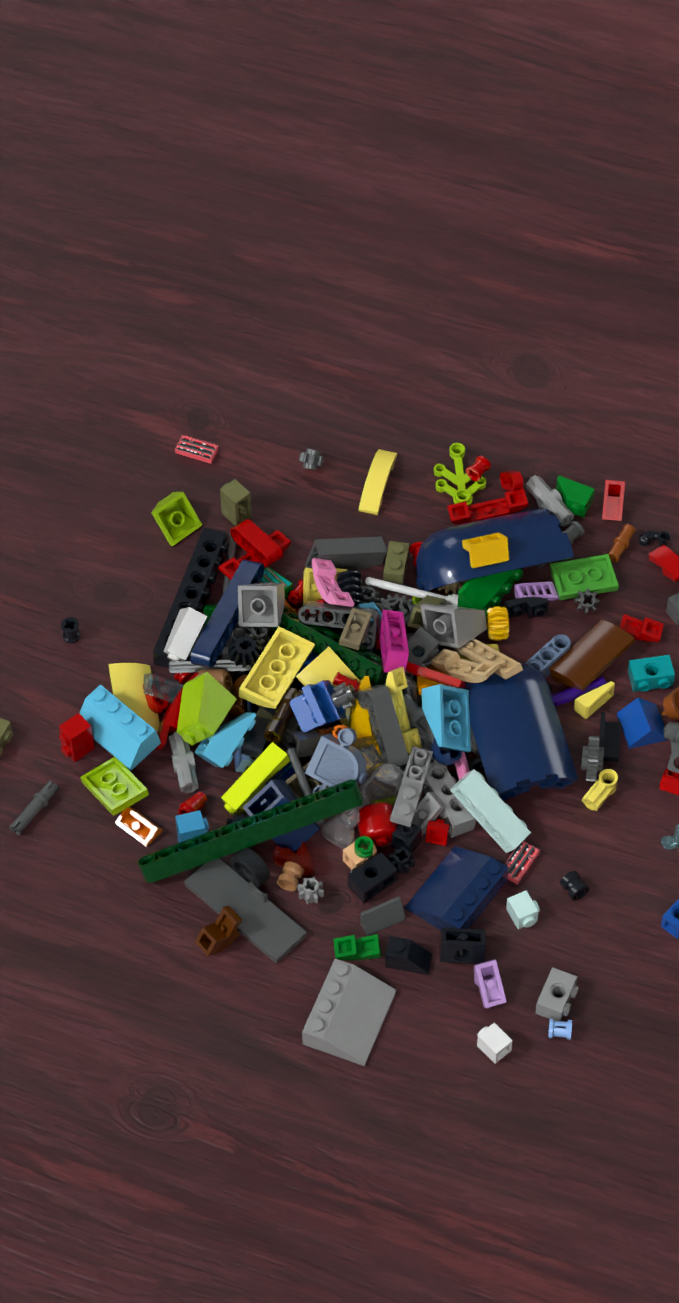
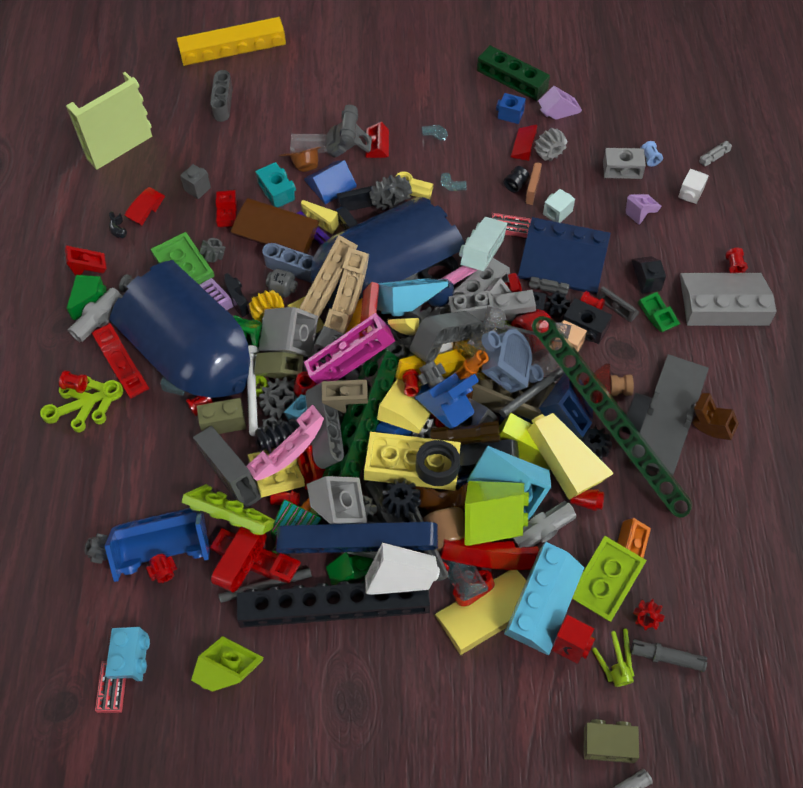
camera: 110 degrees left, 5 degrees up
(38, 767) = (621, 673): none -> lime plant
(70, 630) = (426, 709): black bush -> none
(71, 804) = (654, 611): none -> red gear
(190, 825) = (627, 478): dark azure brick -> none
(214, 460) = (127, 653): none -> medium azure bracket
(228, 786) = (567, 456): none -> light yellow slope
(235, 502) = (190, 599): olive brick -> none
(258, 689) = (437, 447): none -> black tyre
(274, 494) = (161, 568): none -> red gear
(298, 541) = (219, 507): none -> lime wing
(306, 497) = (161, 534): none -> blue windscreen
(310, 890) = (626, 363): light grey gear -> none
(360, 852) = (573, 321): green bush -> none
(376, 481) = (108, 473): light yellow slope -> none
(385, 1043) = (736, 260): none -> red bush
(392, 890) = (591, 300): none -> red bush
(429, 866) = (548, 285): none -> dark grey axle
(462, 945) = (621, 231): black brick -> none
(487, 549) = (199, 311): yellow panel -> none
(511, 480) = (82, 347): red beam -> none
(523, 644) = (281, 282): none -> dark grey head
(537, 1097) = (715, 153): none -> light grey axle
(562, 899) = (533, 183): none -> nougat tile
(578, 720) = (345, 218): none -> black beam
(594, 828) = (451, 185): none -> clear light blue arm
(605, 929) = (550, 144): none -> light grey gear
(621, 542) = (131, 246): dark orange pin -> none
(626, 917) = (524, 142): none -> red slope
(665, 969) = (558, 104): none -> lavender slope

